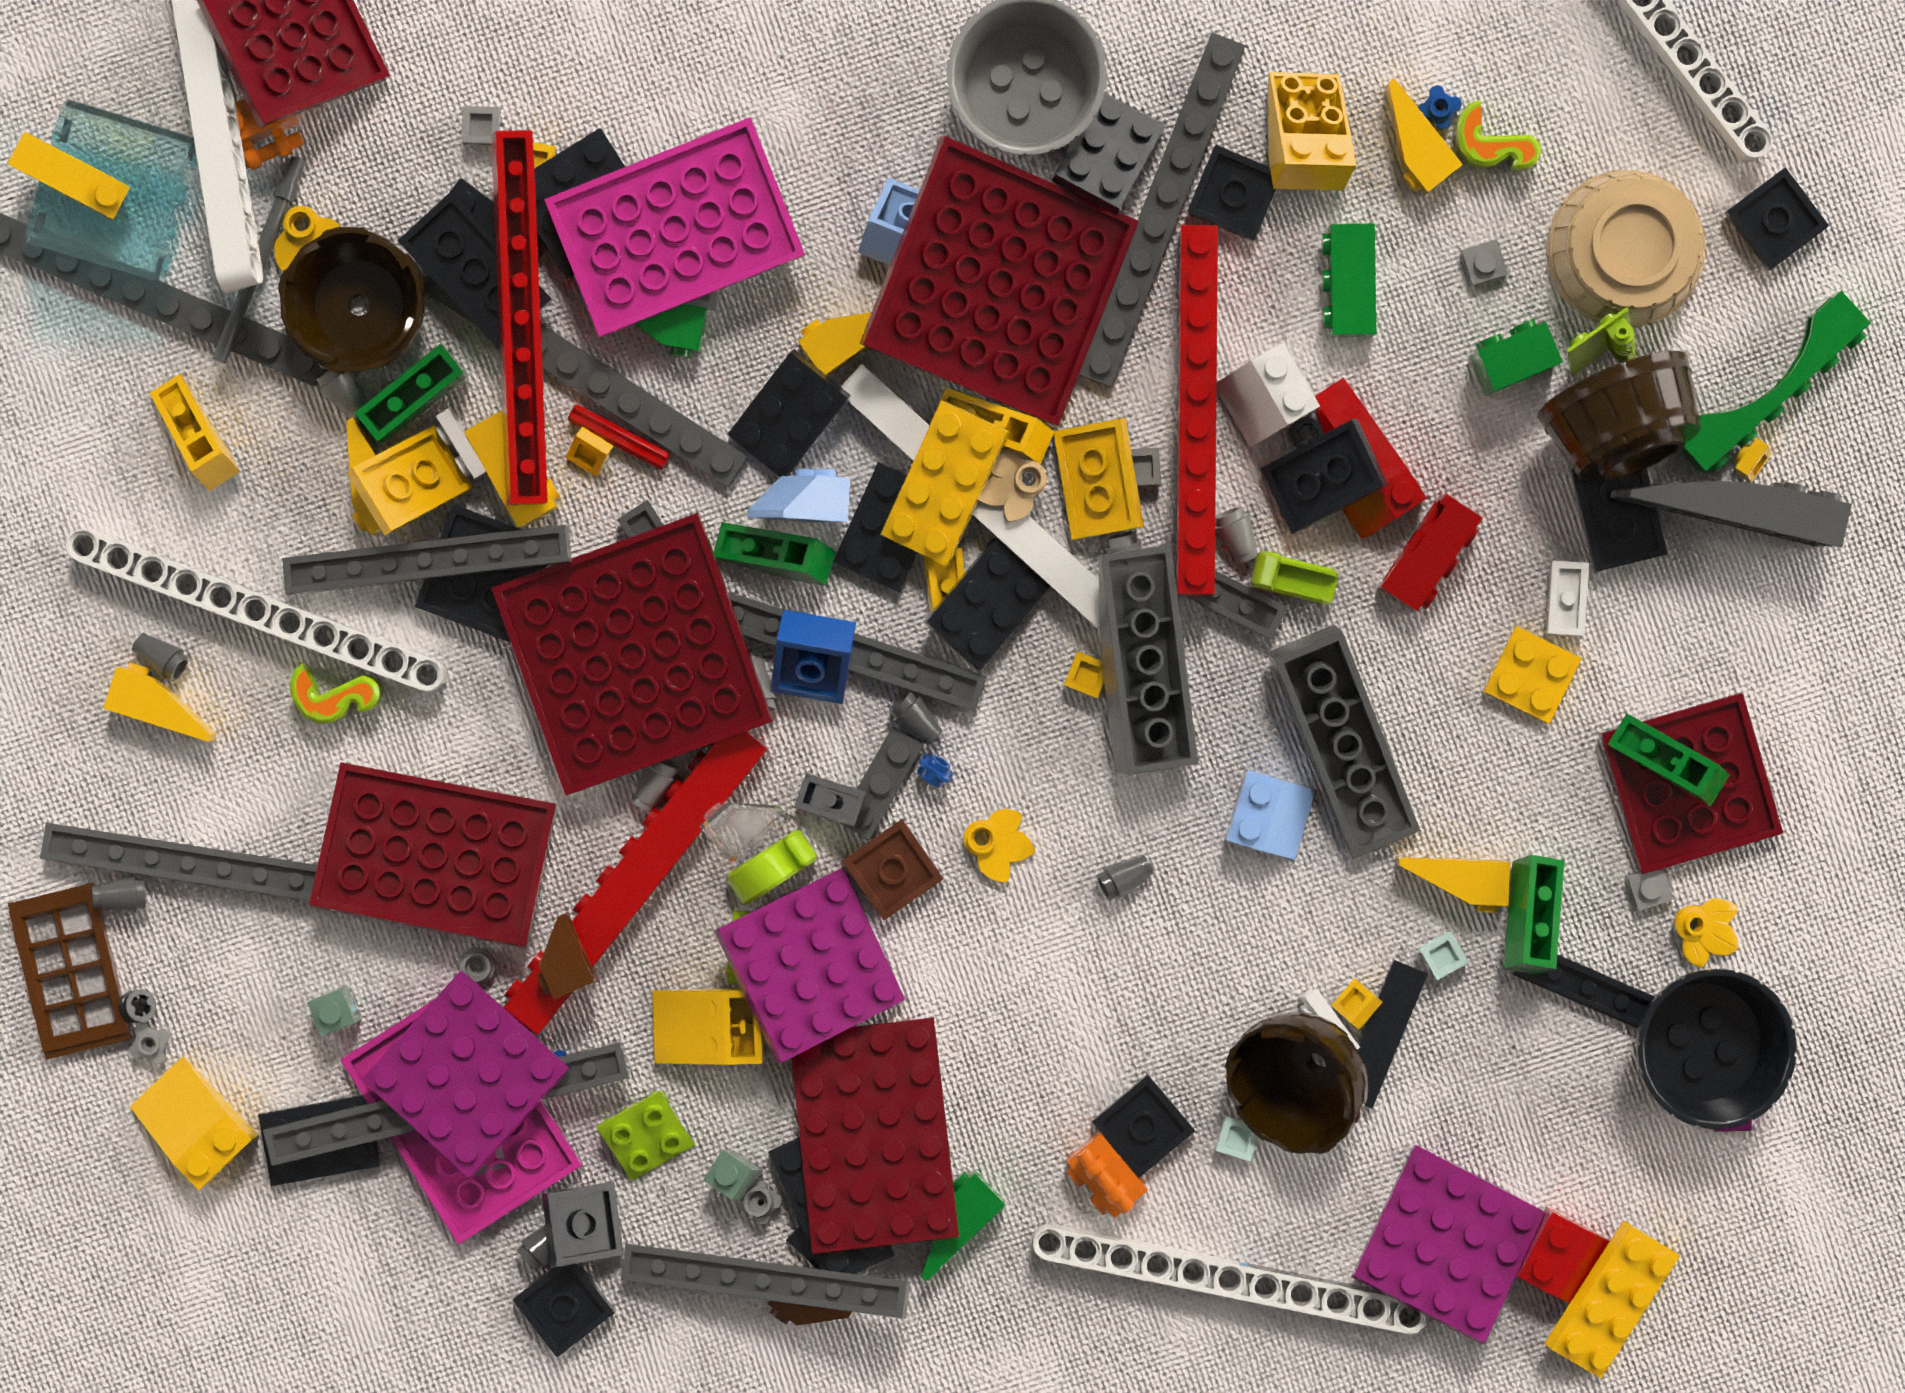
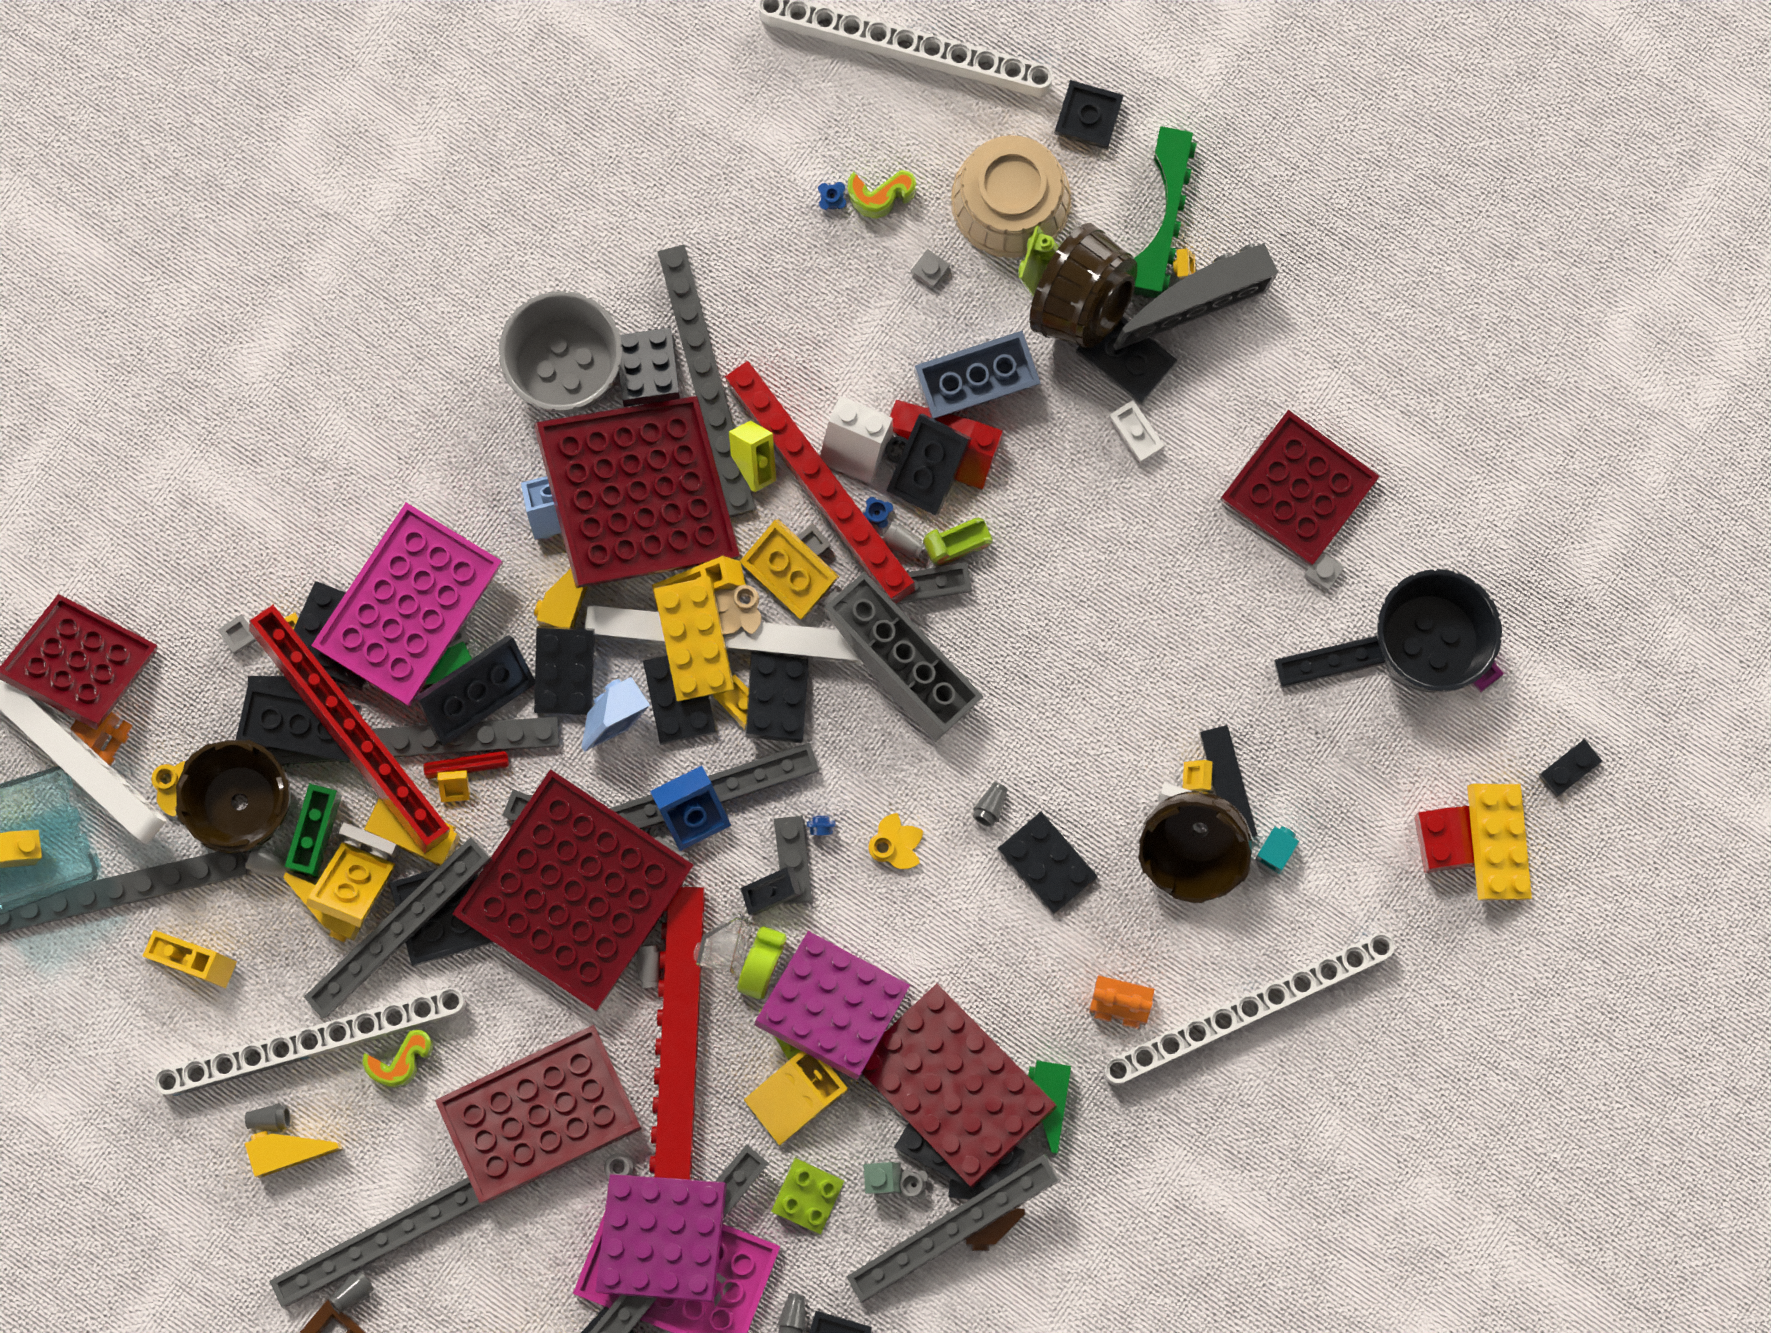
camera: 30 degrees left, 10 degrees down
(284, 195) = (142, 768): dark grey bar -> none
(334, 1011) = (545, 1264): sand green brick -> none
(564, 961) = (672, 1116): reddish brown slope -> none
(582, 1224) = (808, 1283): plate -> none
(681, 370) = (475, 690): none -> black plate
(775, 553) = (619, 762): green slope -> none
(892, 869) = (840, 908): copper plate -> none
(915, 717) = (784, 802): dark grey cone -> none
(1086, 675) = (872, 696): yellow plate -> none
(1137, 977) = (1047, 862): none -> black plate
(1143, 1125) = (1121, 951): black plate -> none
(1150, 330) = (754, 454): none -> neon yellow slope
(1233, 193) = (744, 336): black plate -> none
(1236, 1139) = (1187, 917): light aqua plate -> none
(1244, 487) = (883, 507): none -> blue plate
(1270, 814) = (1052, 698): light blue slope -> none
(1308, 132) = (762, 267): yellow slope -> none
(1344, 740) = (1064, 618): dark grey slope -> none
(1350, 280) = (855, 337): green brick -> none
(1382, 1138) = (1277, 848): none -> teal brick
(1420, 147) = (839, 227): yellow slope -> none
(1431, 553) = (1030, 463): red wedge -> none
(1443, 955) = (1228, 706): light aqua plate -> none
(1445, 419) = (976, 375): none -> sand blue slope
(1448, 1244) = (1370, 883): magenta plate -> none
(1471, 880) = (1207, 648): yellow slope -> none
(1515, 358) = (992, 308): green brick -> none
(1532, 674) = (1150, 494): yellow plate -> none
(1534, 914) = (1264, 636): green brick -> none
(1669, 759) = (1275, 480): green slope -> none
(1711, 932) = (1383, 569): yellow plate -> none
(1744, 1276) = (1570, 768): none -> black plate

